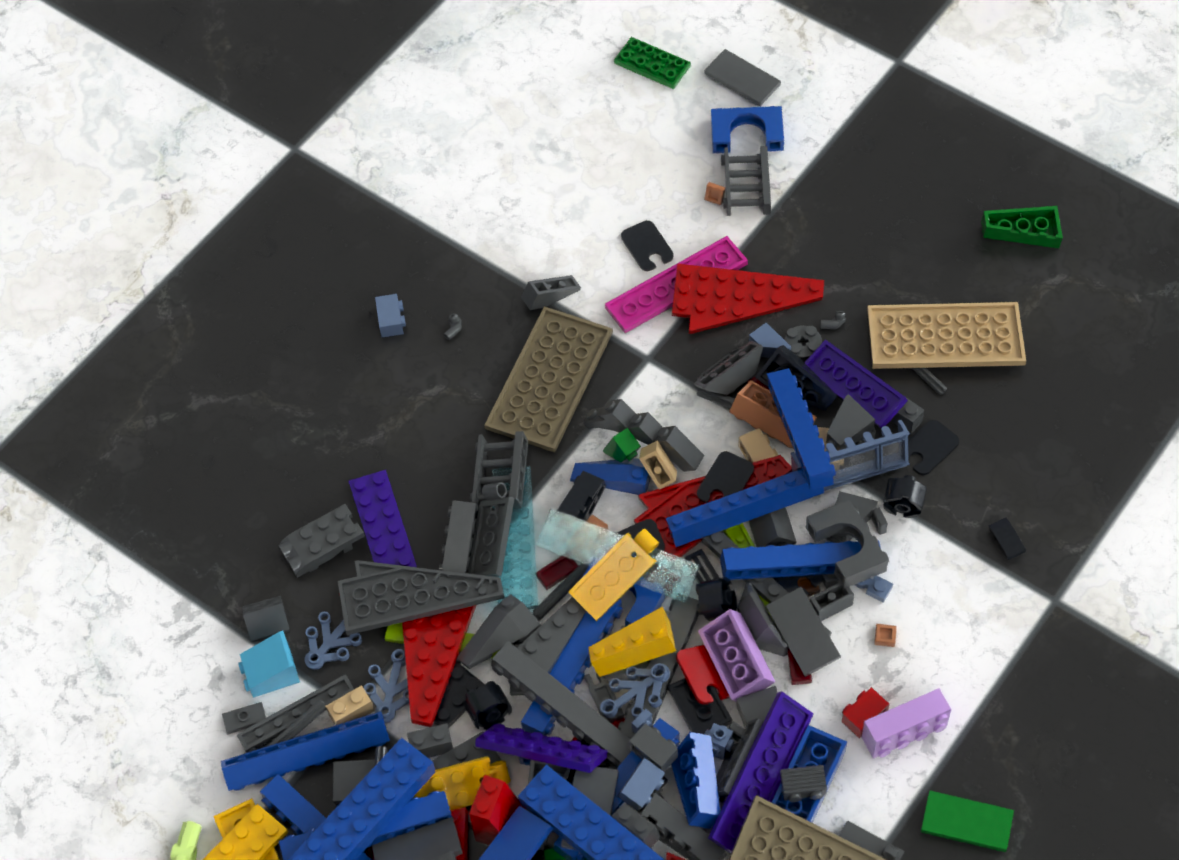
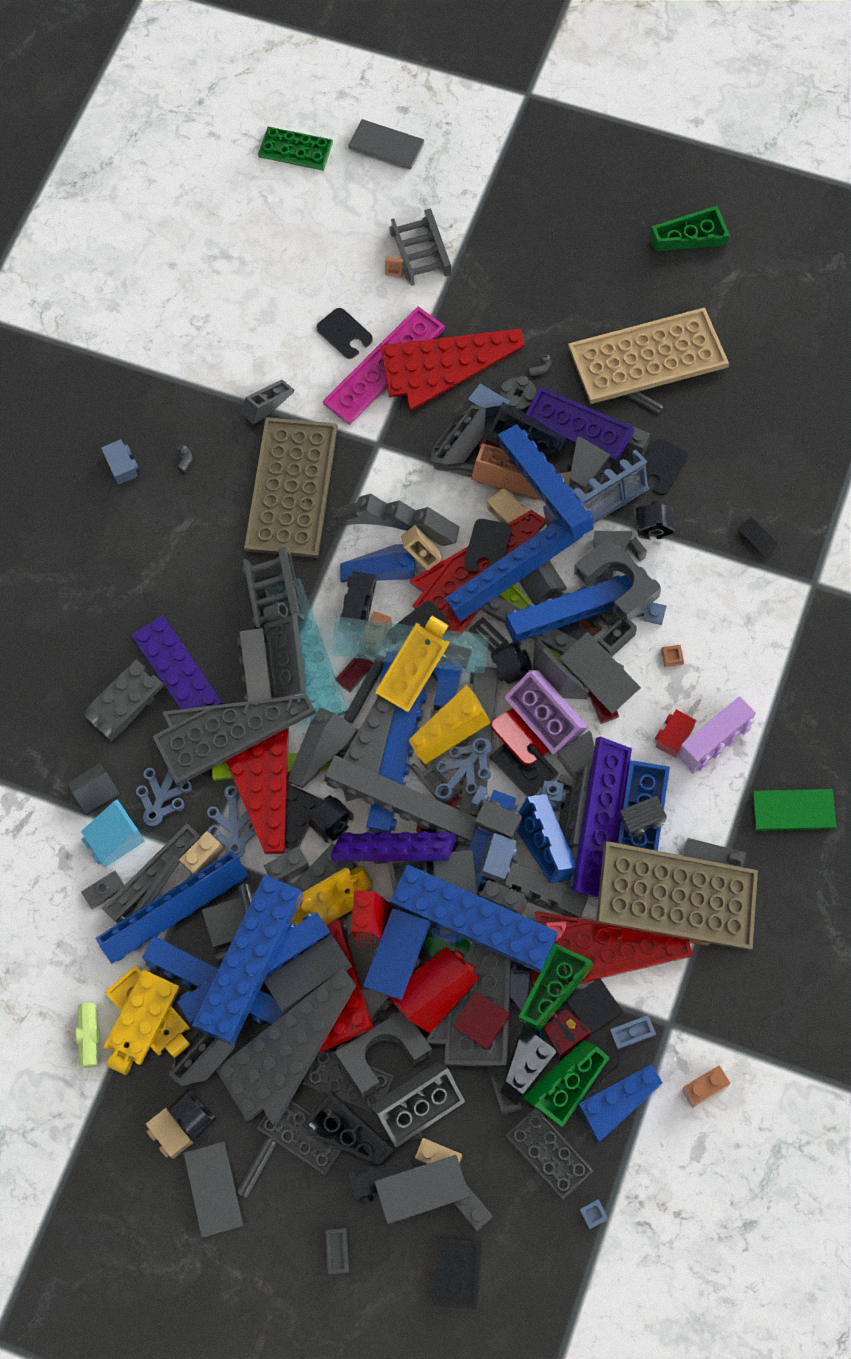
camera: 15 degrees left, 10 degrees up
(622, 446) = (382, 538): green slope -> none
(766, 118) = (421, 180): blue arch -> none

